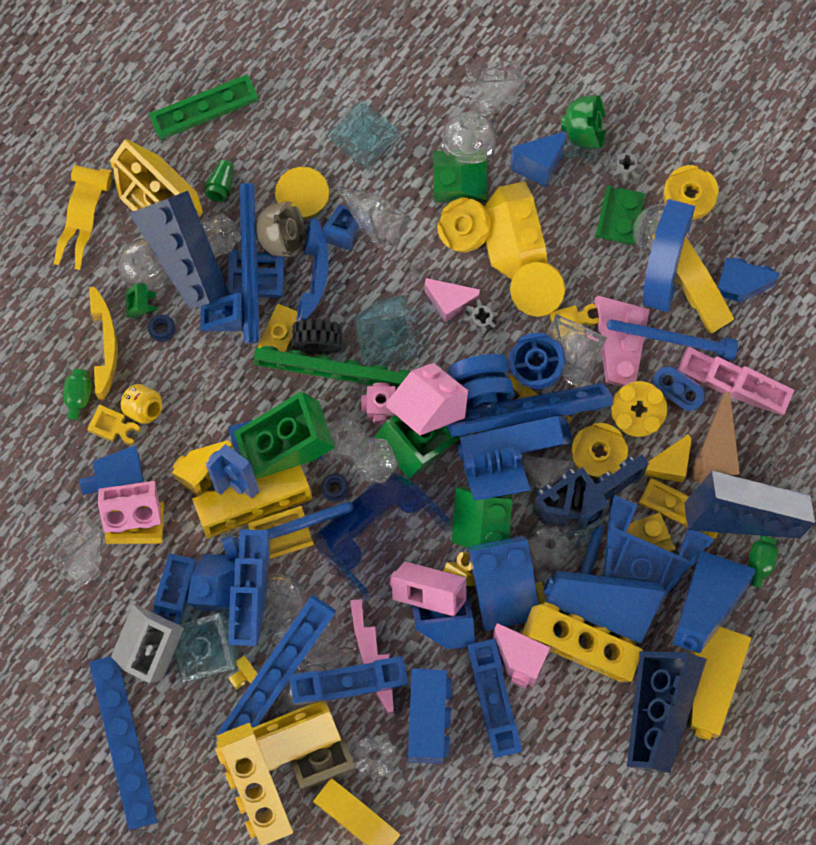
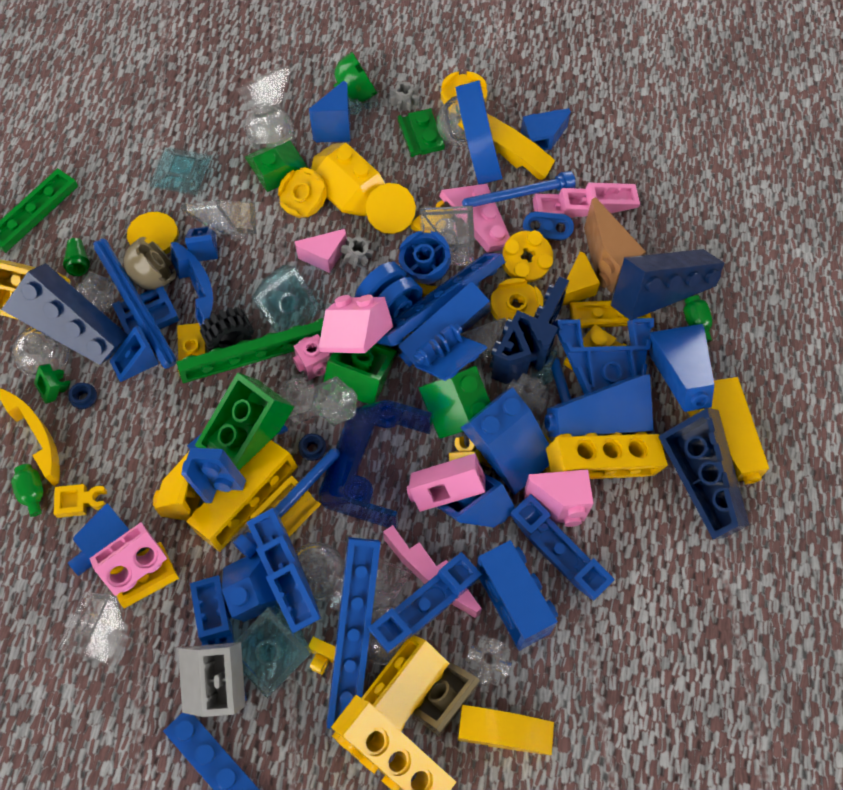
camera: 30 degrees left, 10 degrees down
(141, 403) = (95, 465): yellow head -> none

